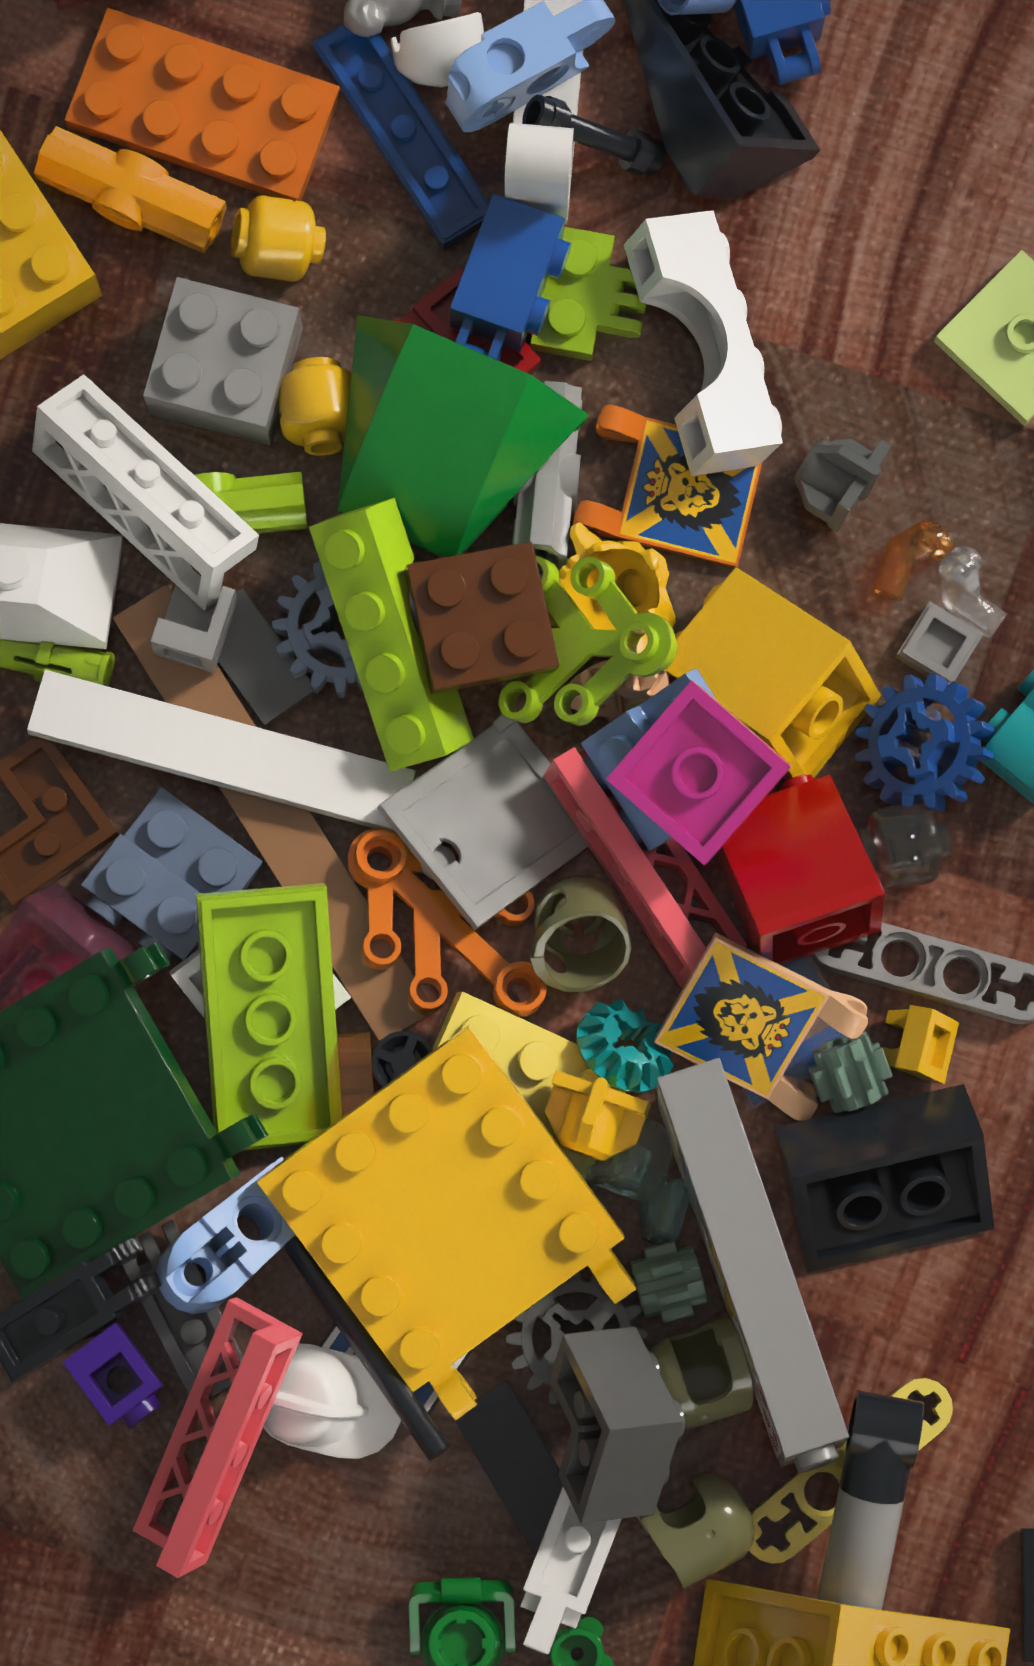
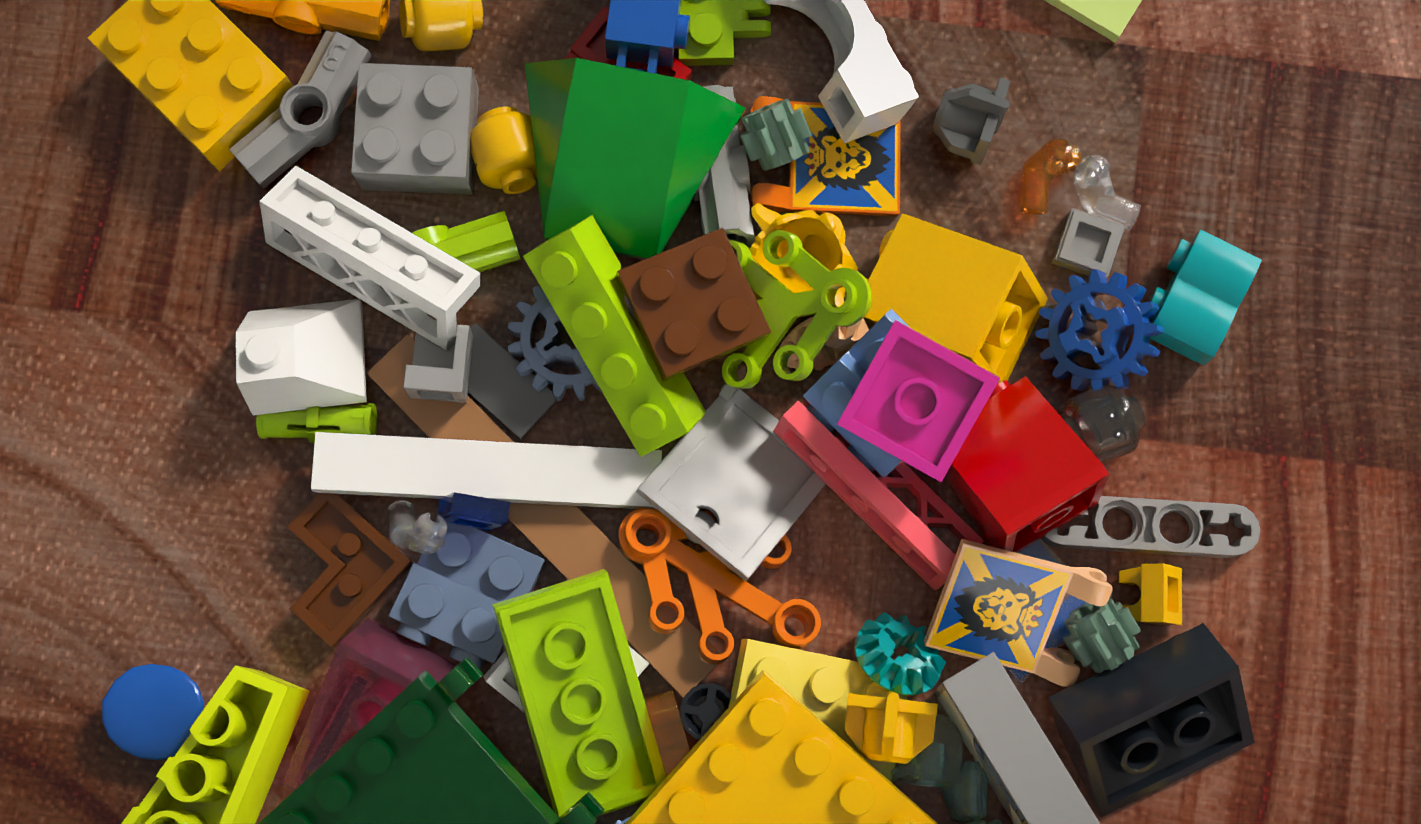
camera: 15 degrees left, 0 degrees up
(130, 805) = (412, 533): none -> clear arm
(134, 289) = (325, 84): none -> light grey piece
(196, 791) = (473, 511): none -> clear blue tile
(577, 899) = (839, 534): olive helmet -> none
(616, 451) = (775, 134): none -> sand green gear

